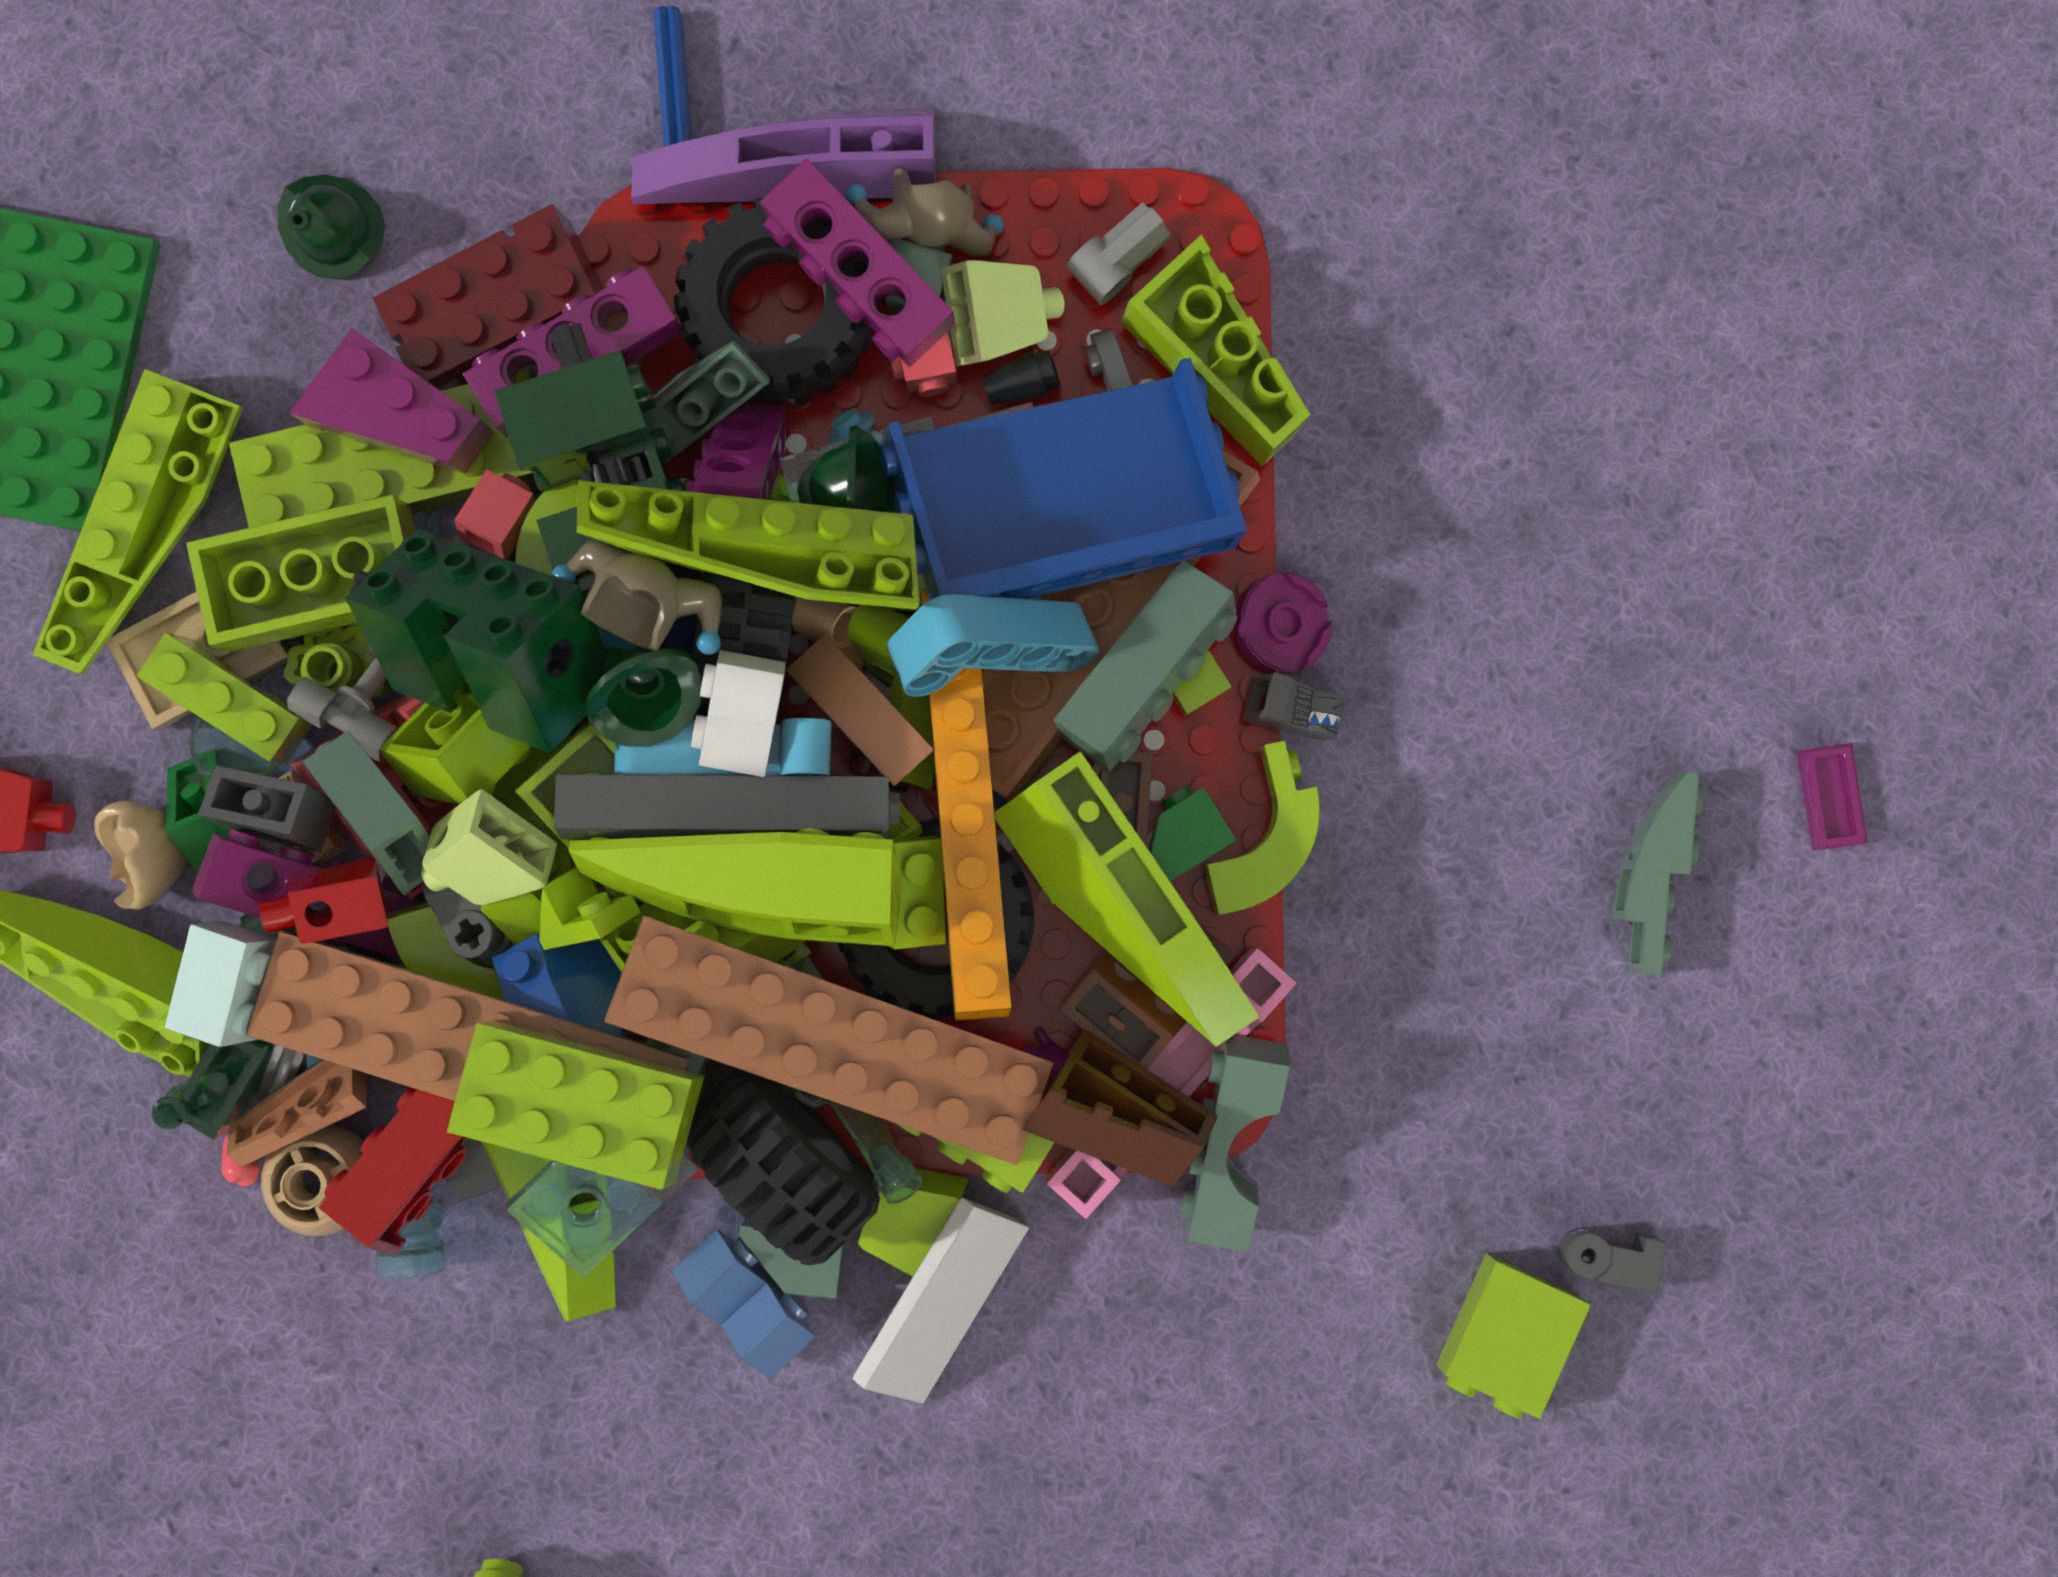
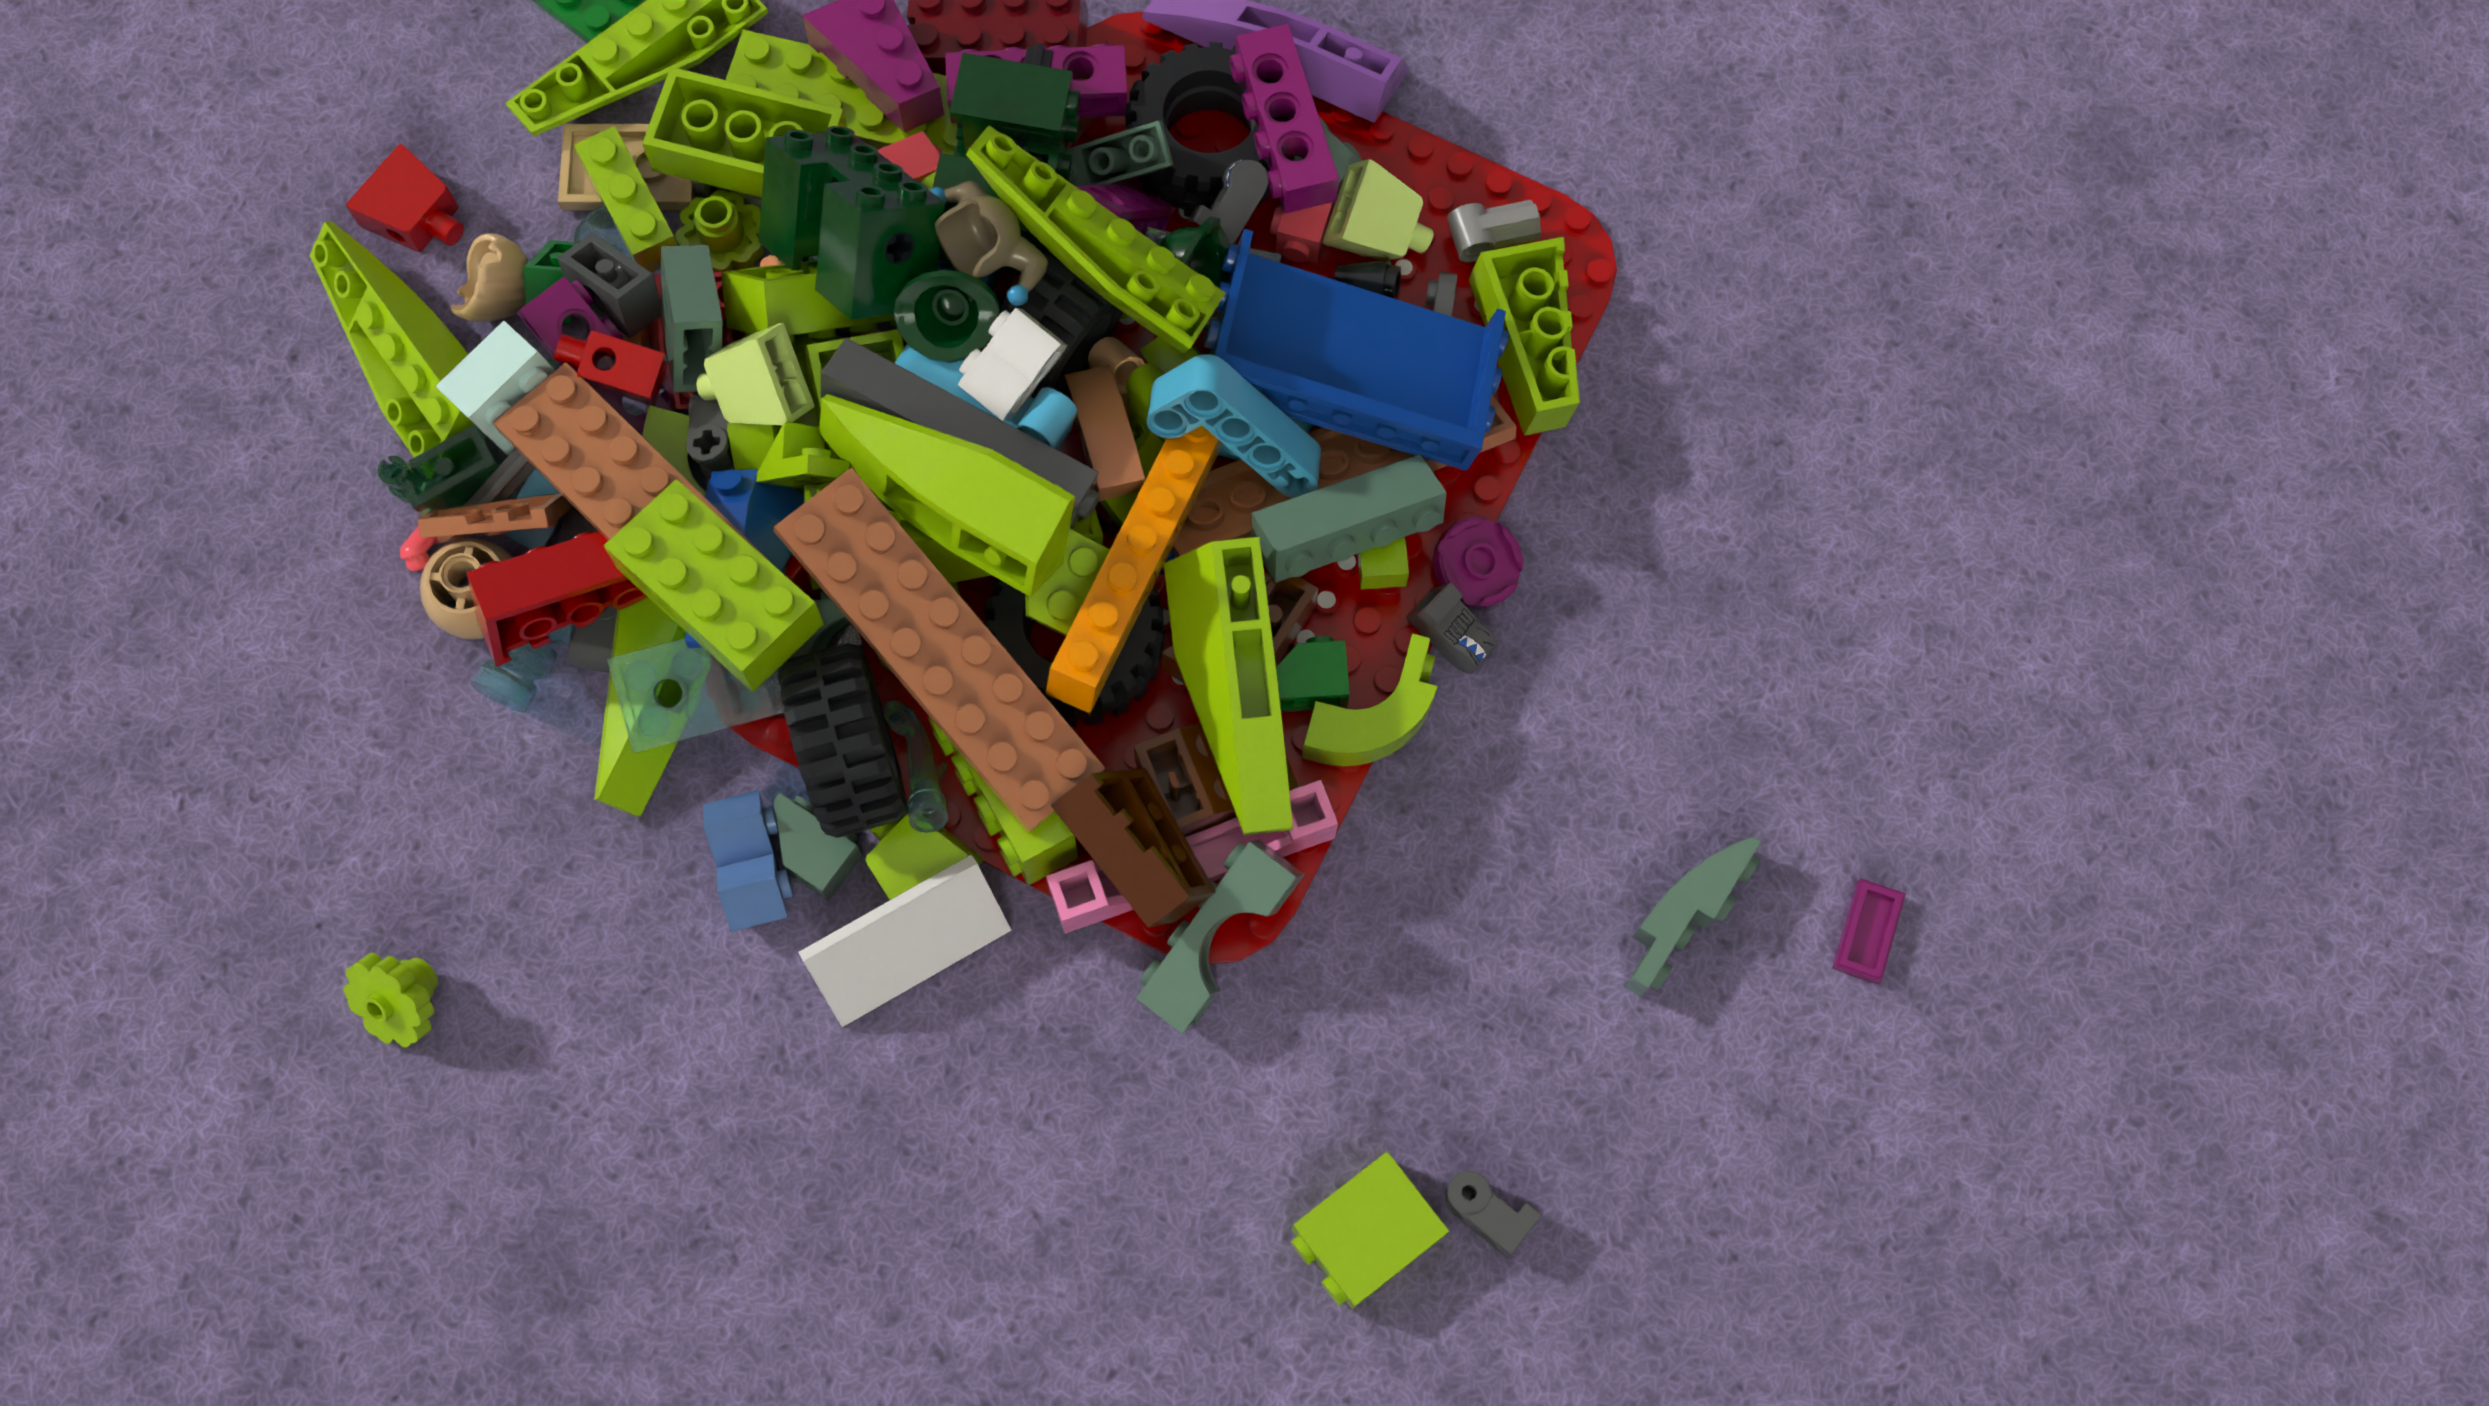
camera: 25 degrees right, 15 degrees down
(346, 708) = (693, 229): light grey bar -> none
(852, 383) = (1242, 190): none -> dark grey leg
(929, 215) = (1362, 123): dark tan piece -> none

